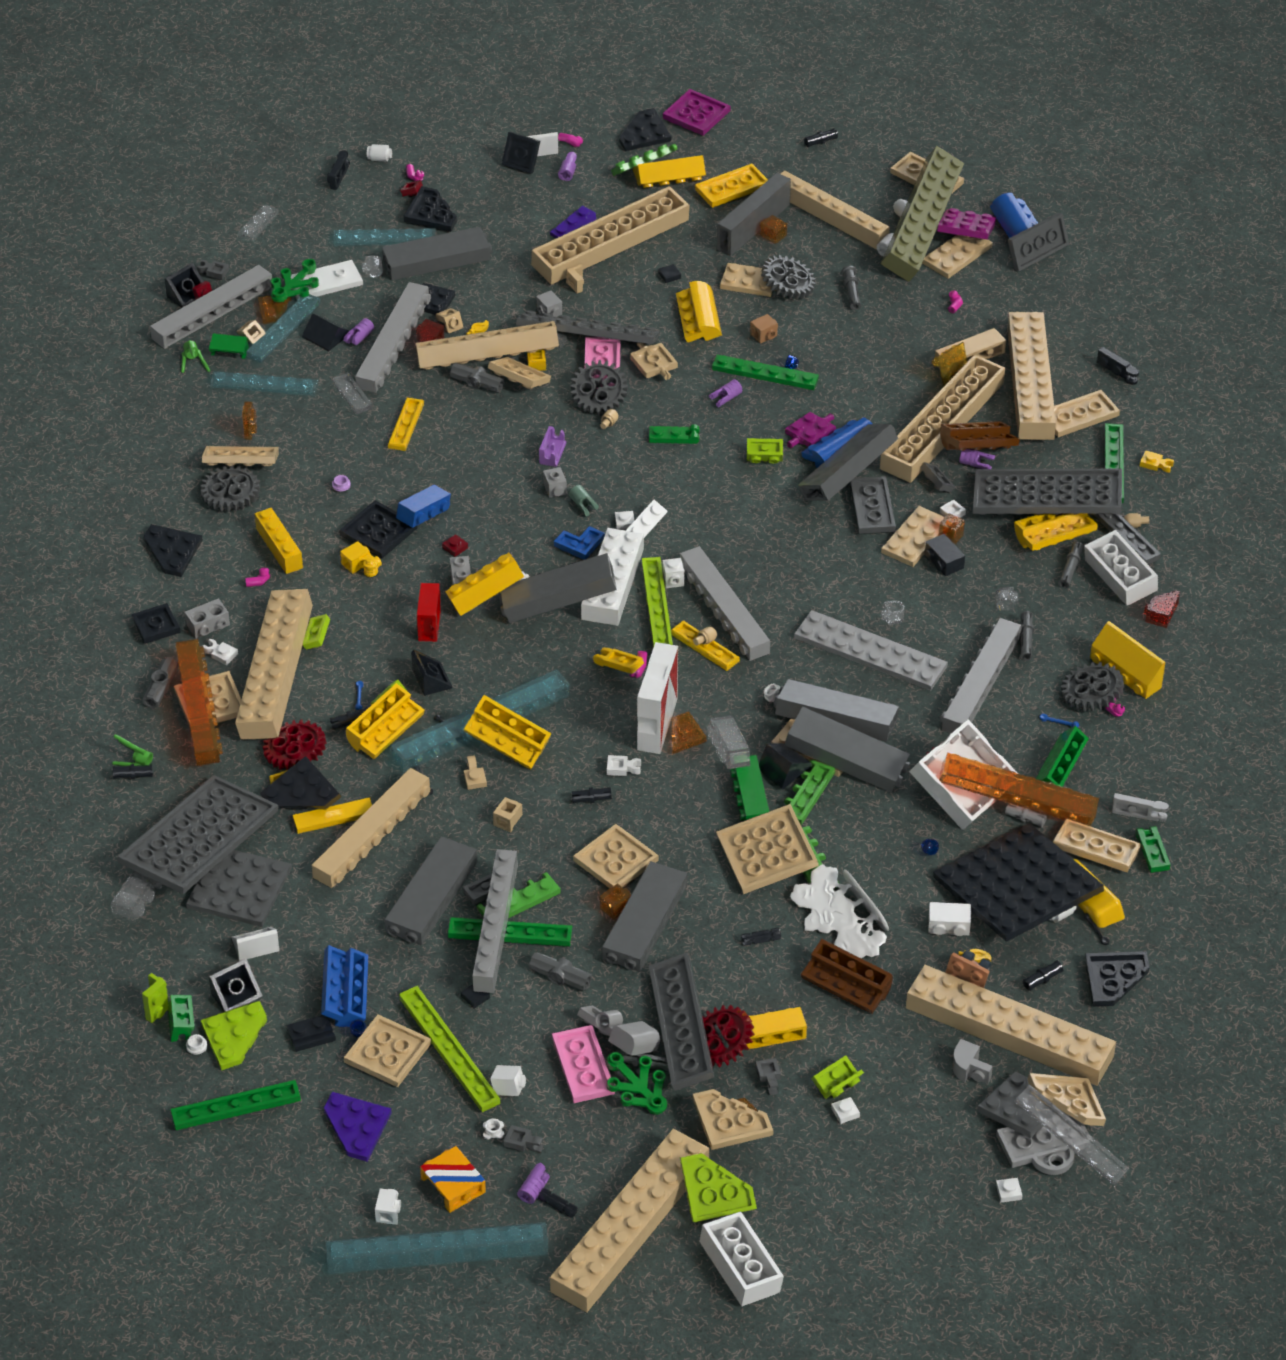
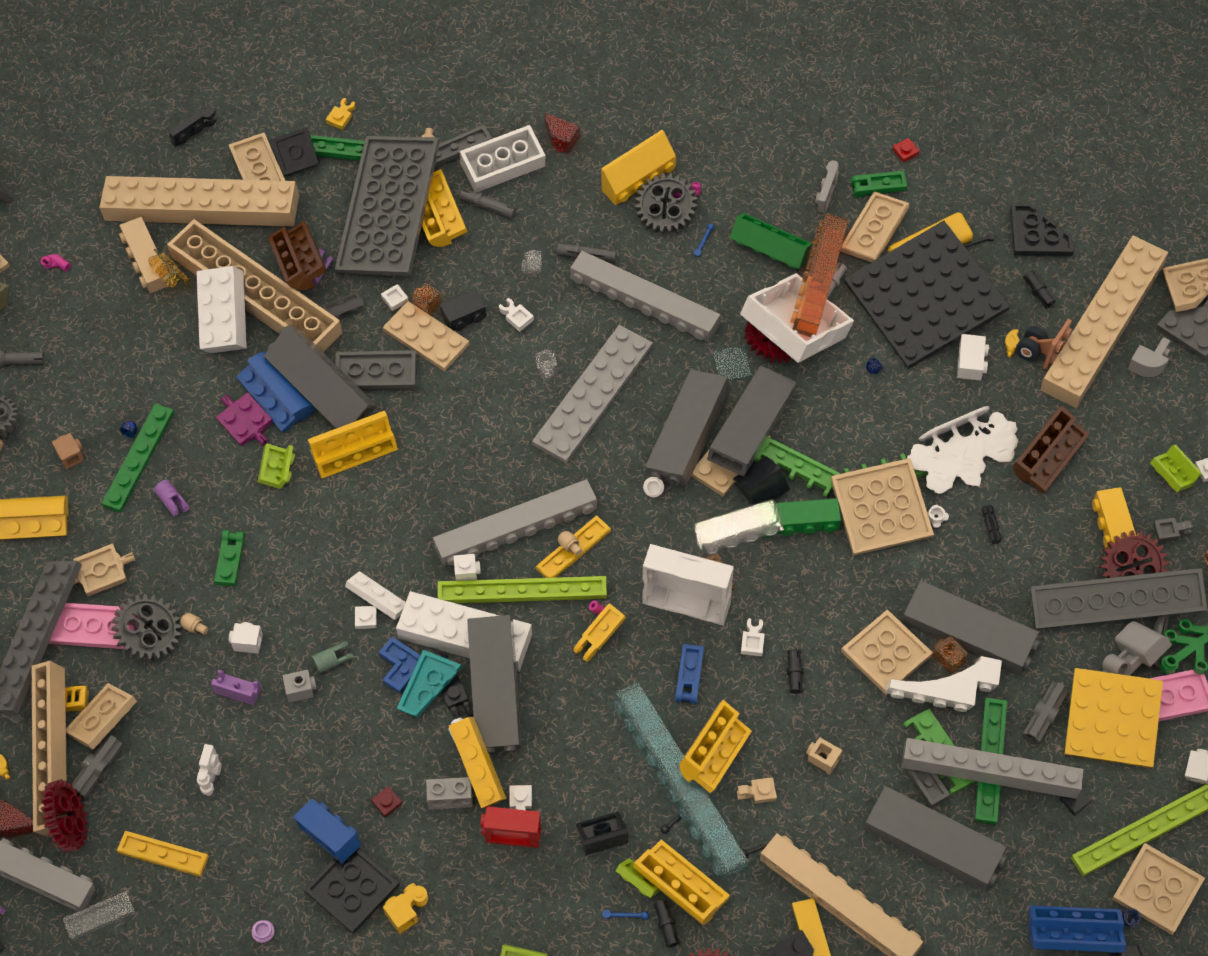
camera: 85 degrees left, 15 degrees up
(411, 361) = (62, 800): none -> dark red gear
(459, 625) = (521, 797): none -> white plate
(478, 432) = (209, 768): none -> white plate
(555, 1016) = (1113, 717): none -> yellow plate
(559, 554) = (427, 682): none -> teal wing
(576, 902) = (952, 691): none -> white arch
(584, 724) = (689, 673): none -> blue plate
(597, 448) = (246, 637): none -> white brick
(765, 890) = (940, 512): none -> white plate
(789, 492) = (352, 444): none -> yellow brick
(910, 392) = (221, 309): none -> white brick
(917, 745) = (732, 363): none -> clear light blue piece
(946, 593) = (516, 316): none -> white plate
(1099, 429) = (295, 151): none -> black plate
(1202, 871) = (905, 150): none -> red plate

